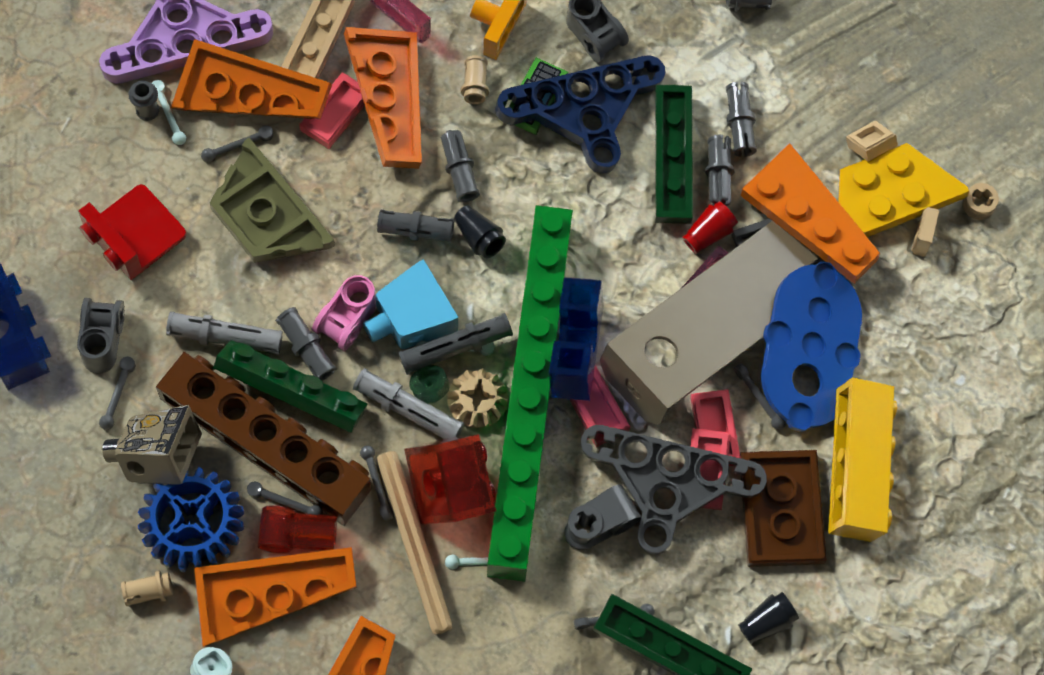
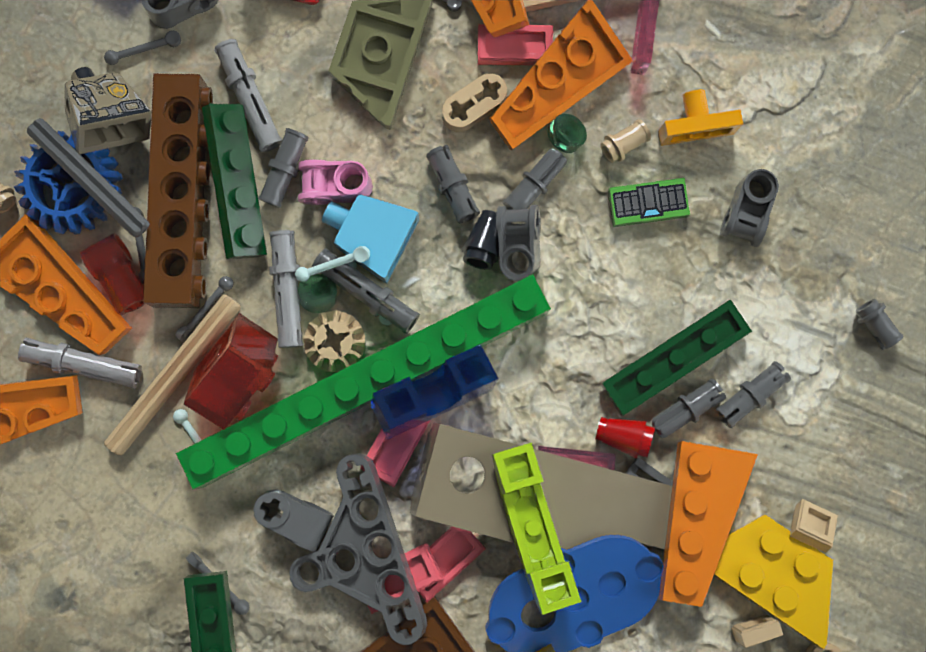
camera: 55 degrees right, 15 degrees up
(207, 488) = (88, 177): none -> dark grey axle
(339, 619) = (64, 359): none -> light grey pin
(368, 169) = (469, 95): none -> tan beam
(426, 320) = (360, 254): none -> light aqua hinge
(437, 116) = (567, 133): none -> clear green tile
(498, 201) = (518, 238): none -> dark grey piece
(567, 113) = (682, 264): dark blue beam -> none
(736, 331) = (533, 529): none -> lime slope
(776, 422) = (510, 552): dark grey hinge -> none

